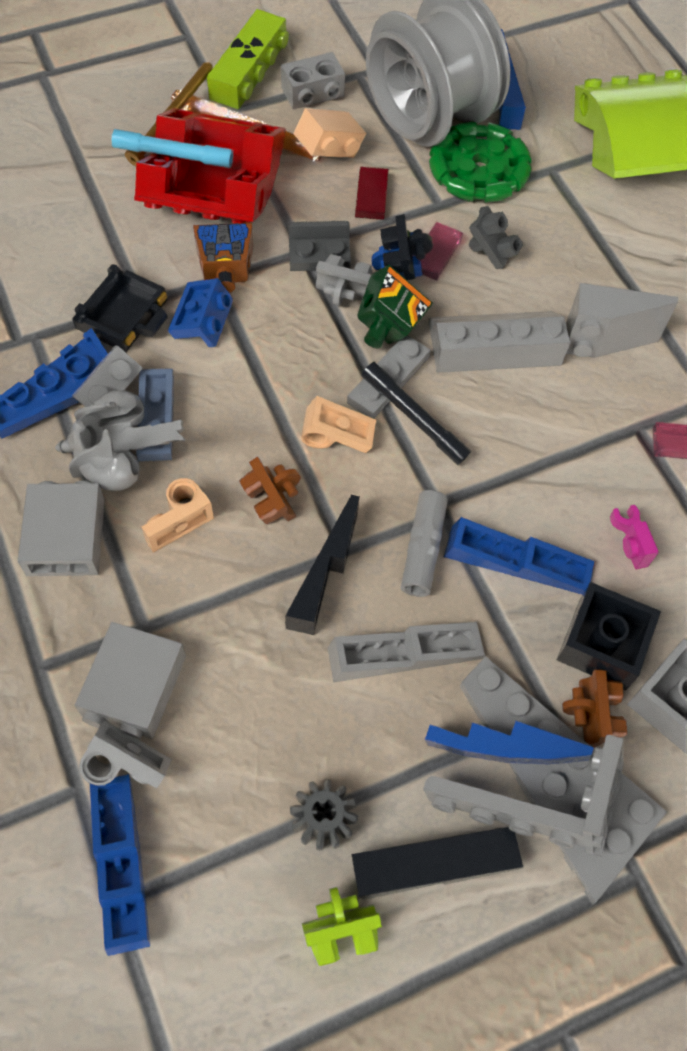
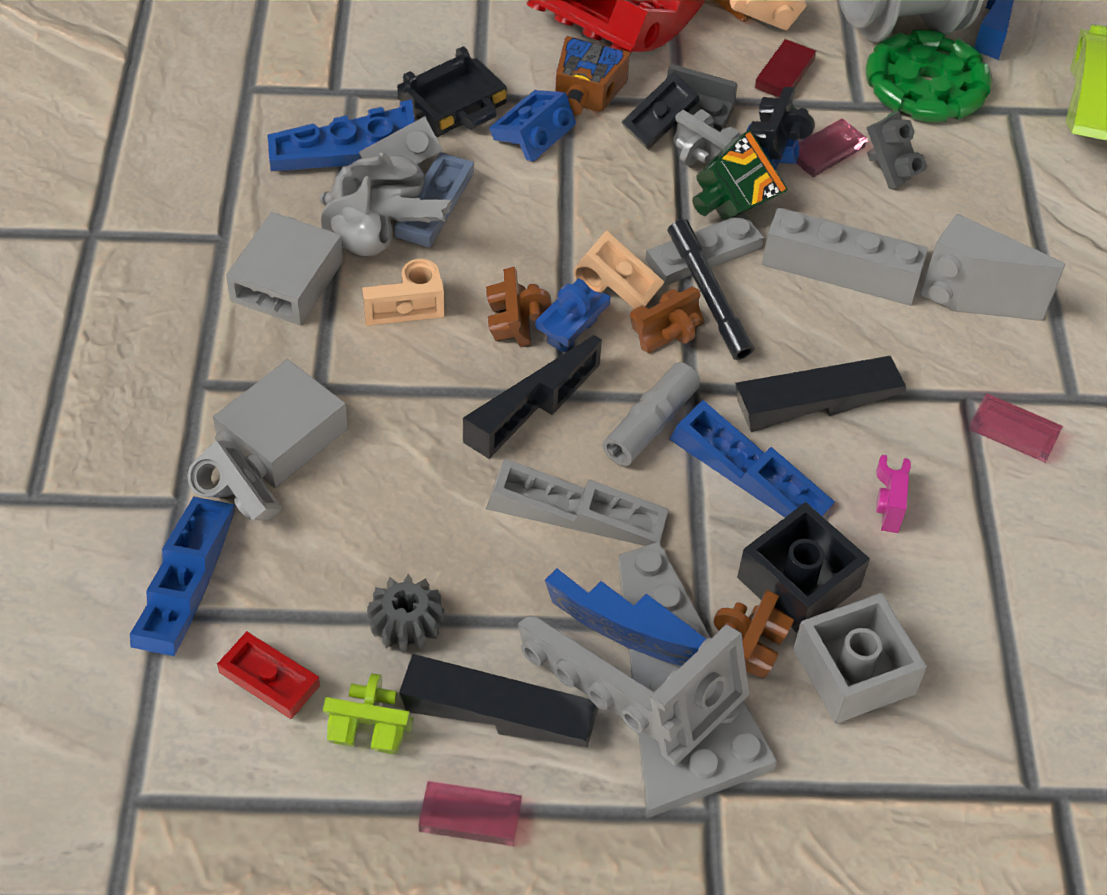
camera: 25 degrees right, 10 degrees down
(238, 925) = (268, 675): none -> red plate
(299, 266) = (659, 110): none -> black plate
(321, 479) = (571, 314): none -> blue hips
(399, 455) = (669, 320): none -> dark orange hips
(461, 971) = (470, 813): none -> clear pink tile
(536, 470) = (831, 388): none -> black slope

